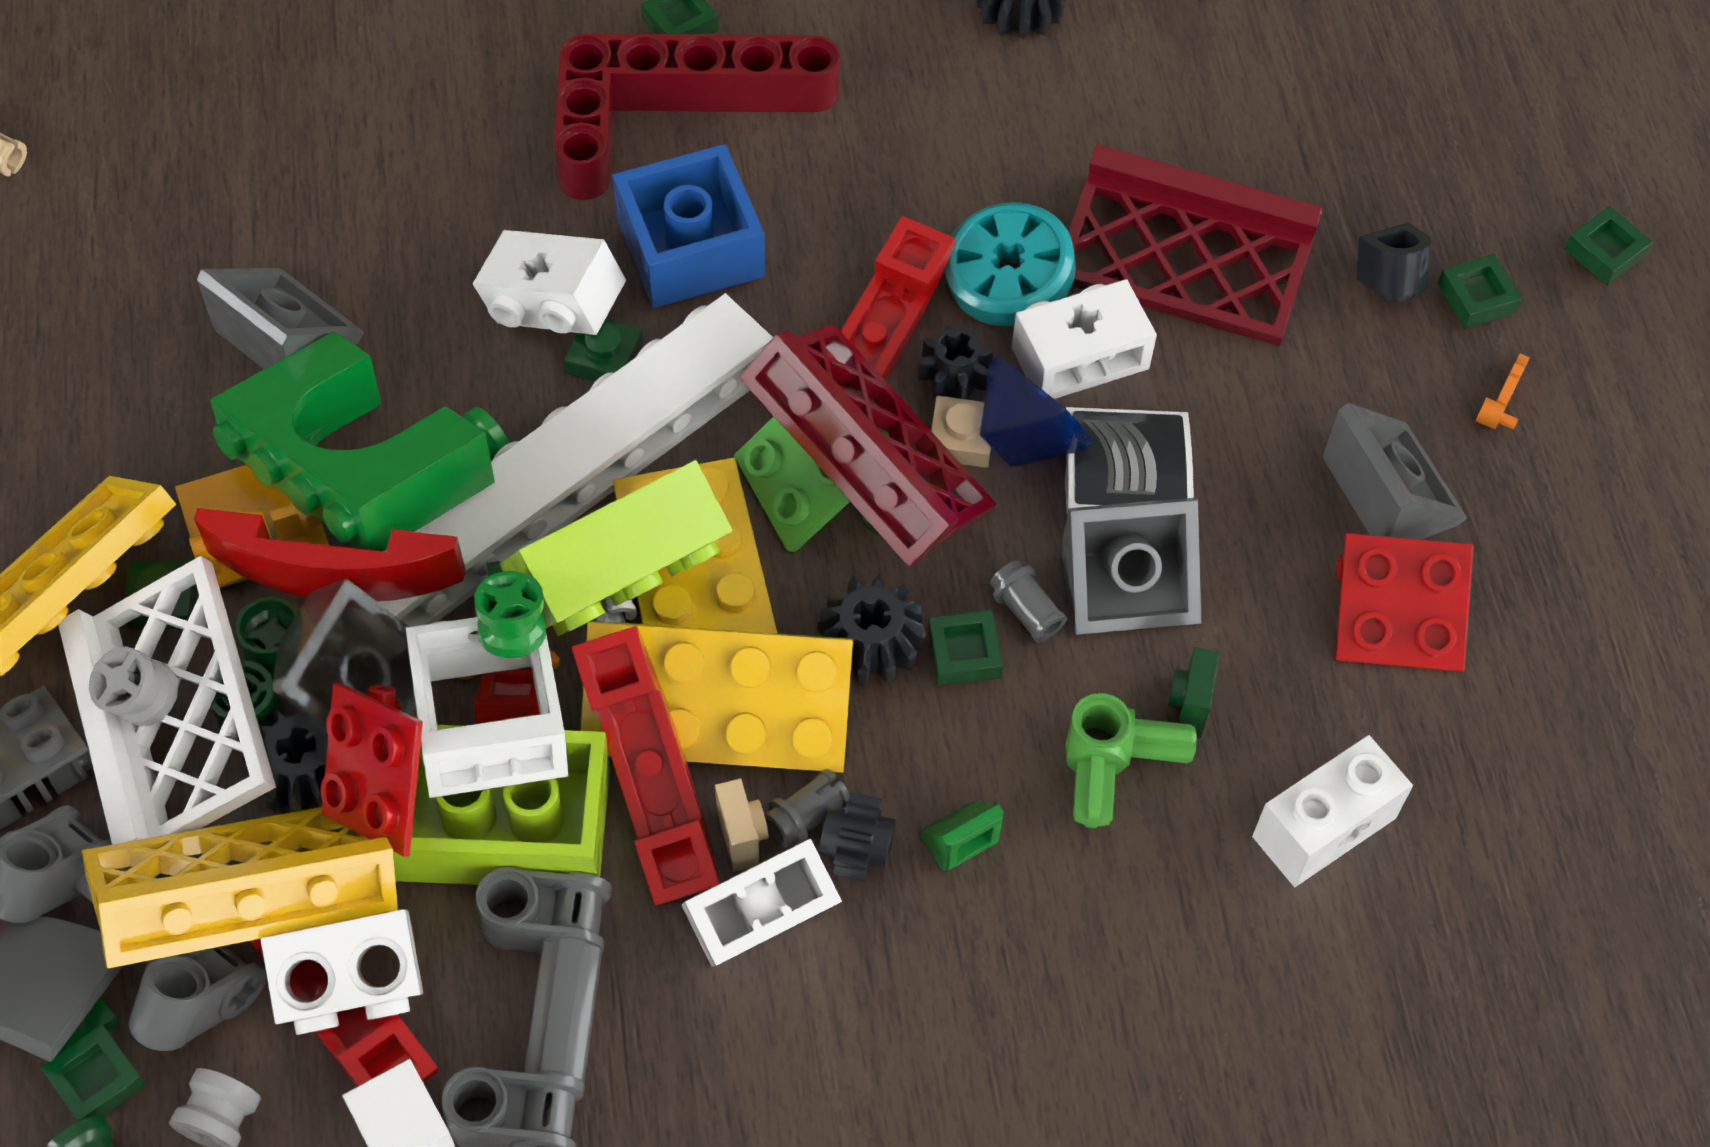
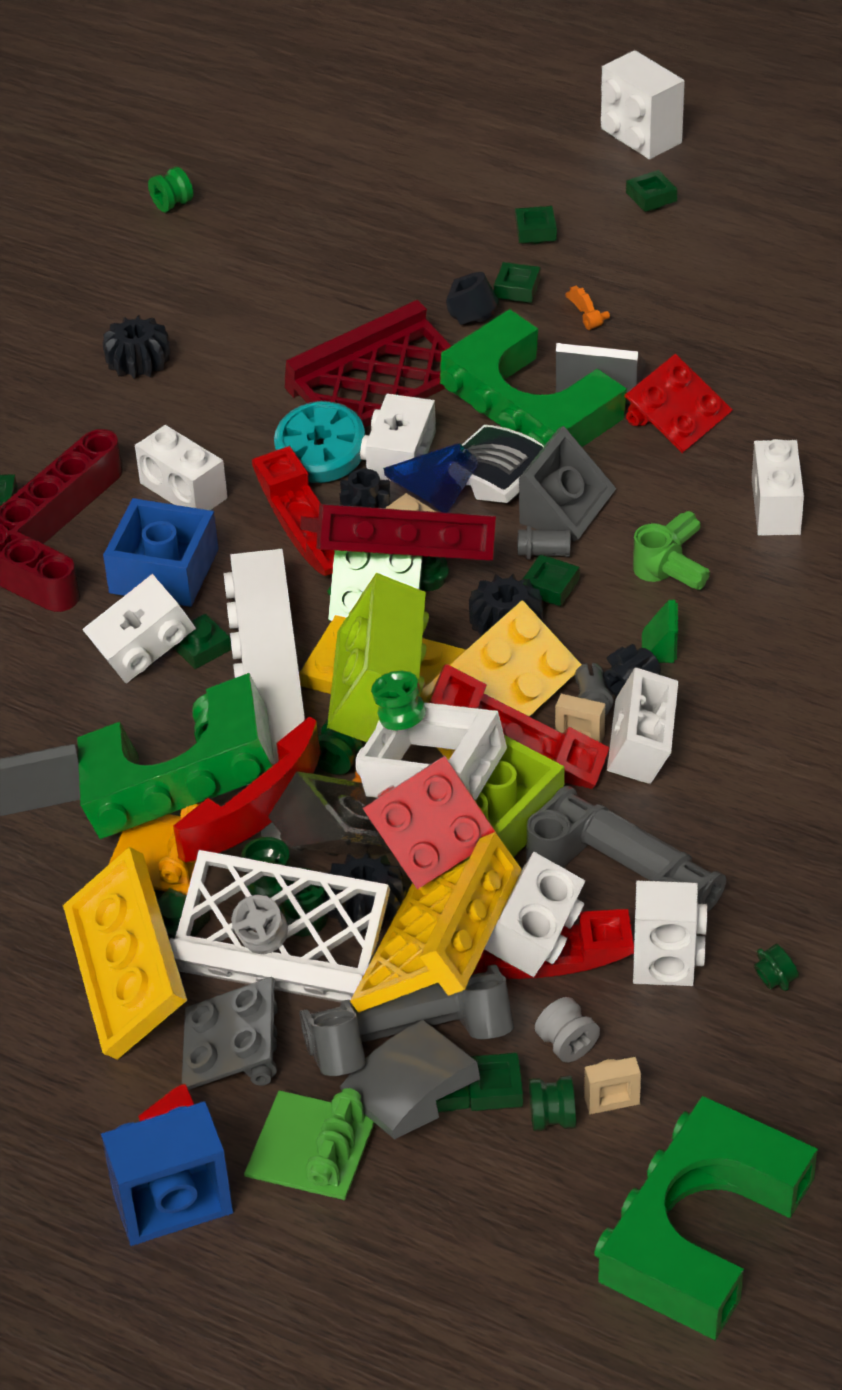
camera: 50 degrees left, 15 degrees down
(844, 162) = (180, 470): none -> white brick
(1194, 687) = (660, 500): dark green plate -> none
(1244, 485) = (484, 359): none -> green arch

